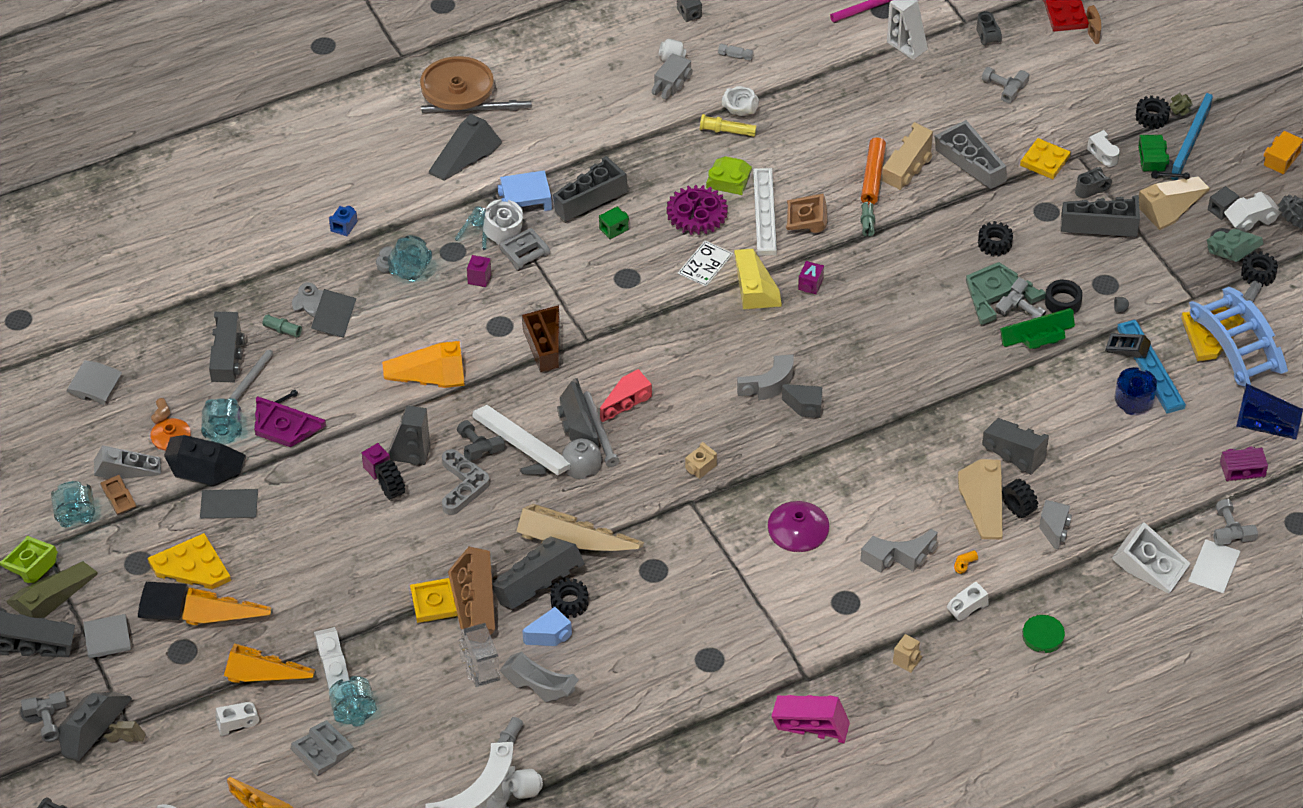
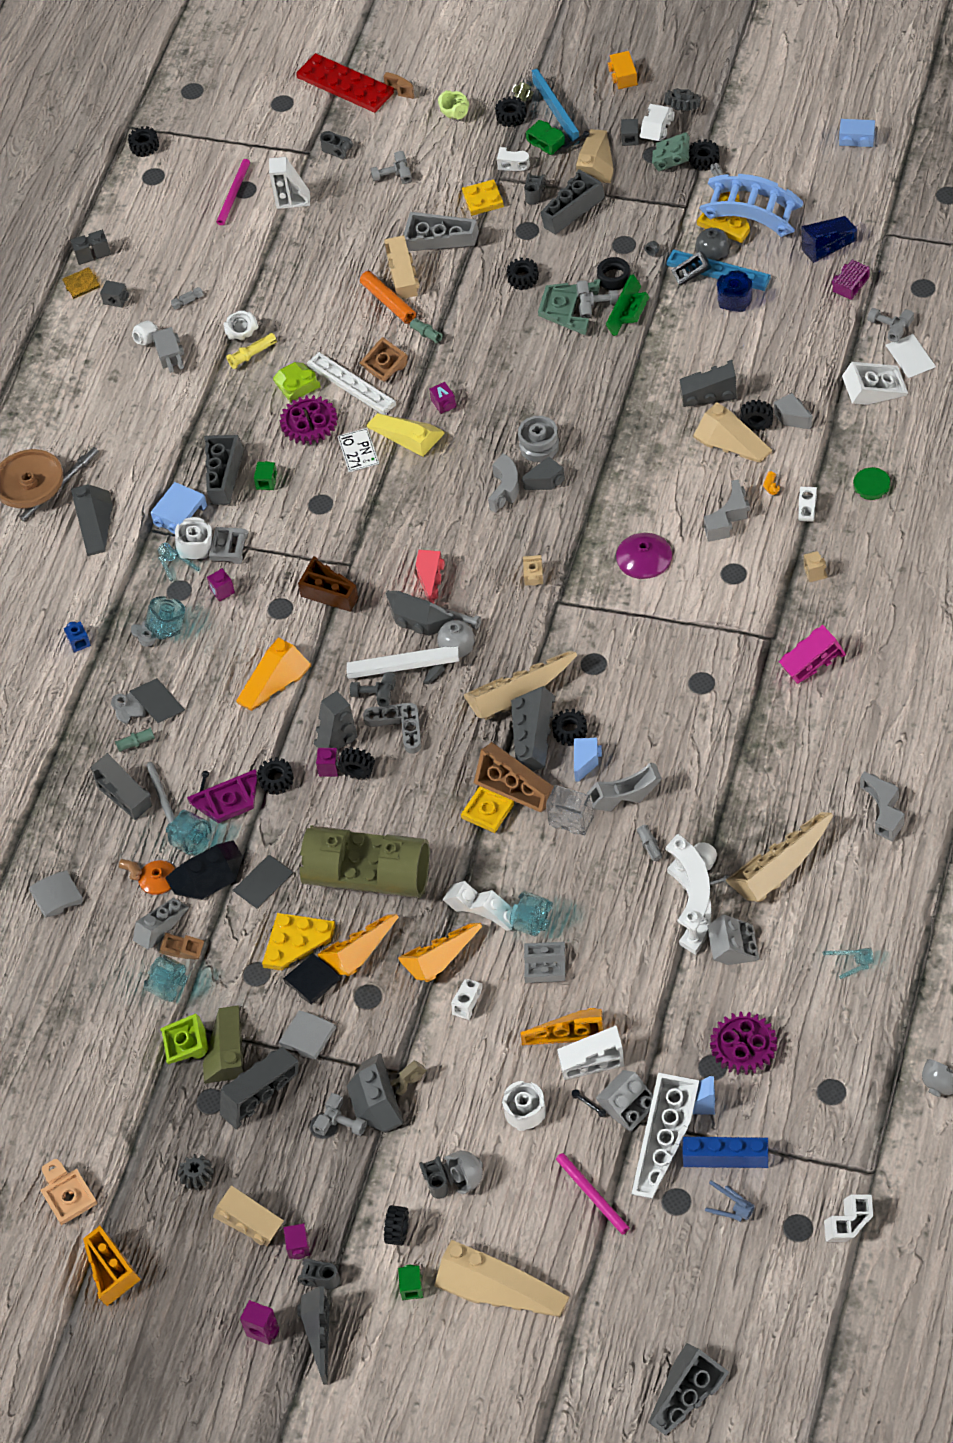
camera: 40 degrees left, 5 degrees up
(292, 551) = (365, 861): none -> olive cylinder
(329, 429) = (278, 784): none -> black tyre
(835, 368) = (538, 438): none -> light grey wheel
(1113, 71) = (453, 104): none -> yellowish green hair
(1171, 342) = (713, 243): none -> dark grey cylinder

